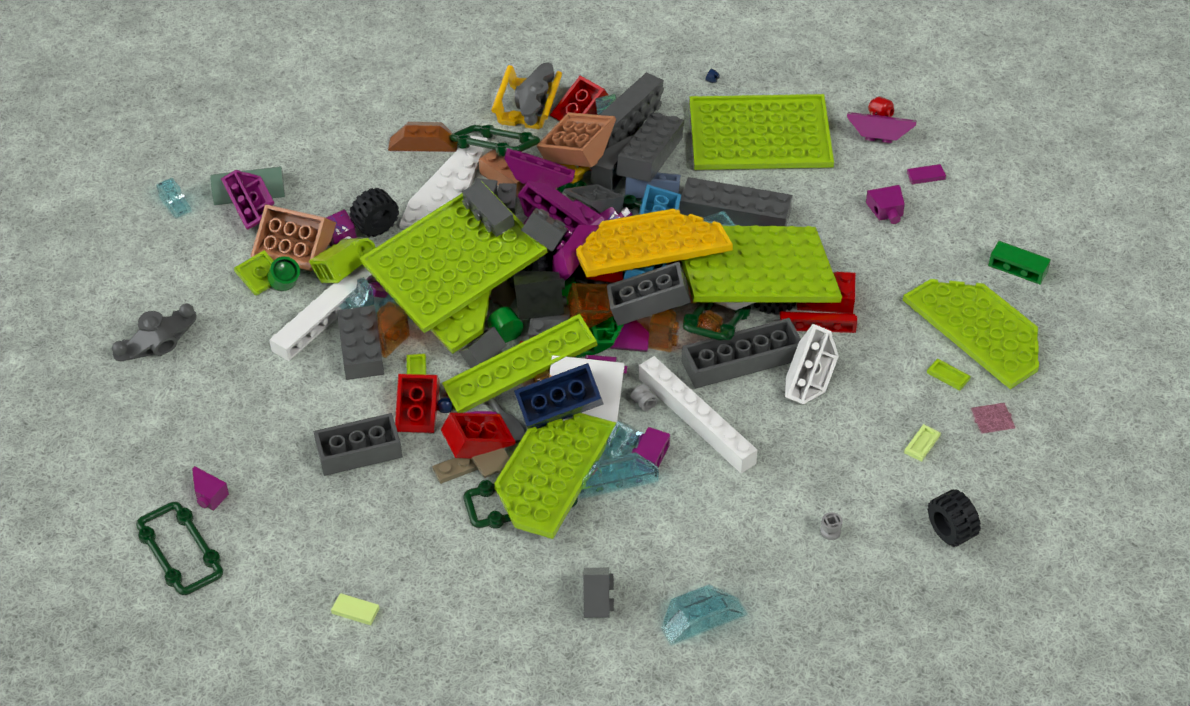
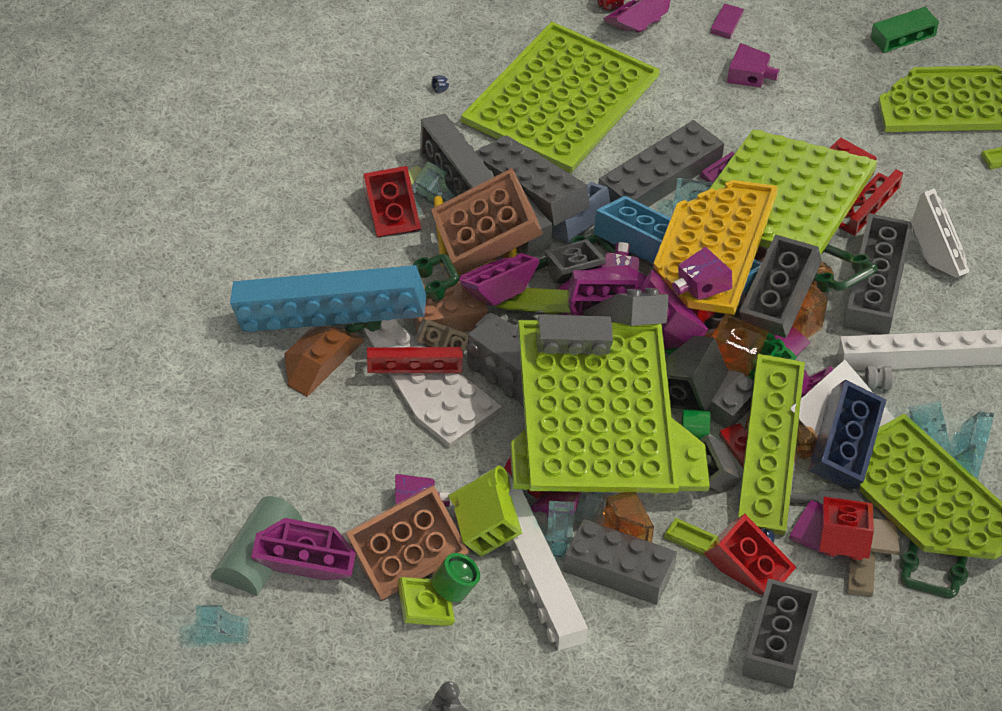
camera: 60 degrees left, 0 degrees up
(374, 212) = (430, 448): black tyre -> none
(442, 170) = (414, 359): none -> red fence
(451, 109) = (328, 298): none -> dark azure brick
(479, 170) = (440, 335): none -> dark tan slope
(515, 117) = (327, 220): yellow piece -> none
(532, 93) = (350, 225): dark grey piece -> none
(598, 241) = (703, 275): none -> magenta torso
(653, 445) = (955, 405): magenta brick -> none

